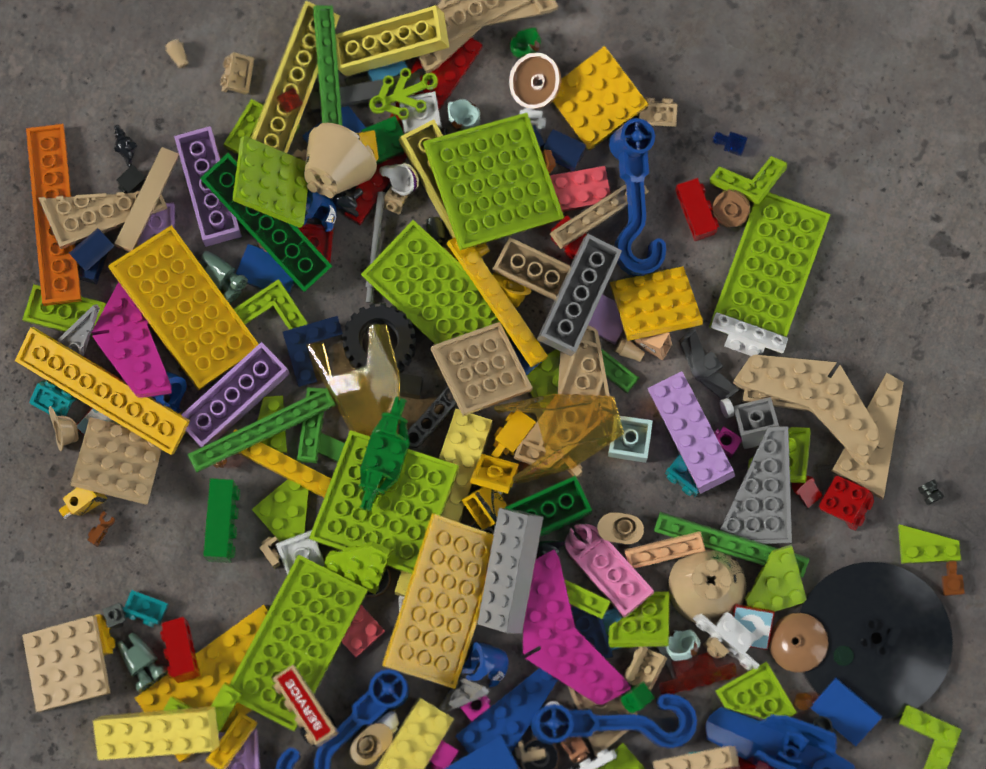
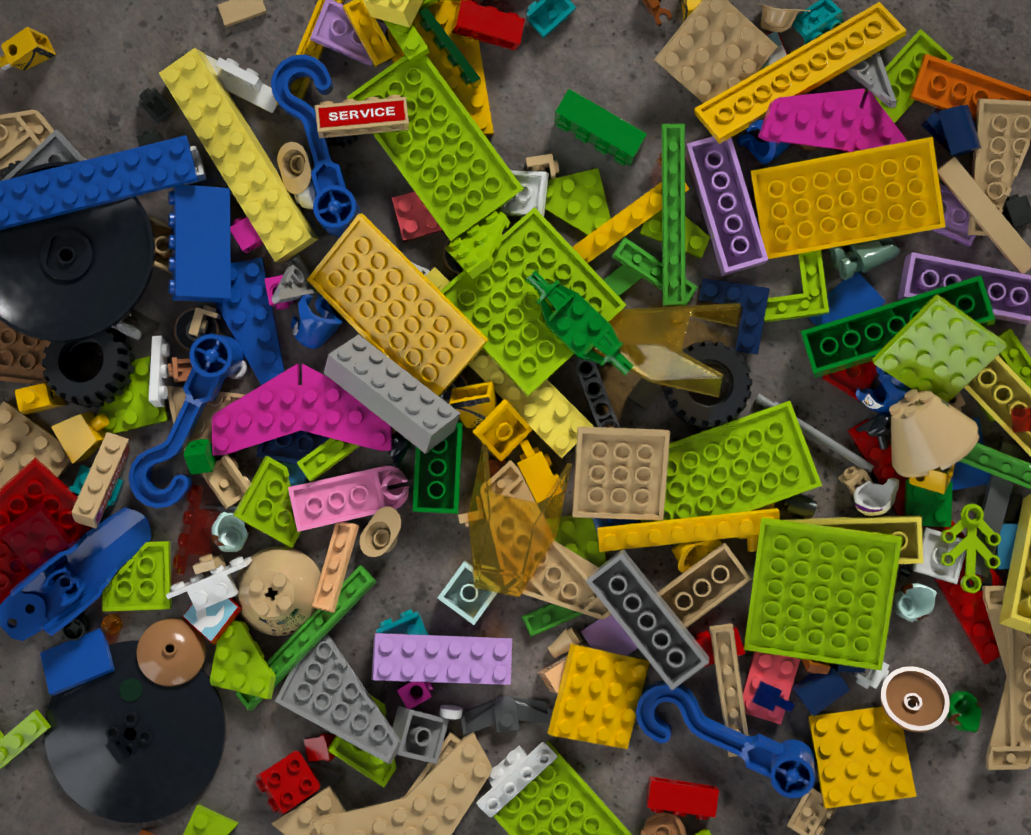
camera: 120 degrees right, 10 degrees up
(211, 676) = (444, 42): none -> dark green plate
(589, 183) = (769, 697): none -> clear blue plate

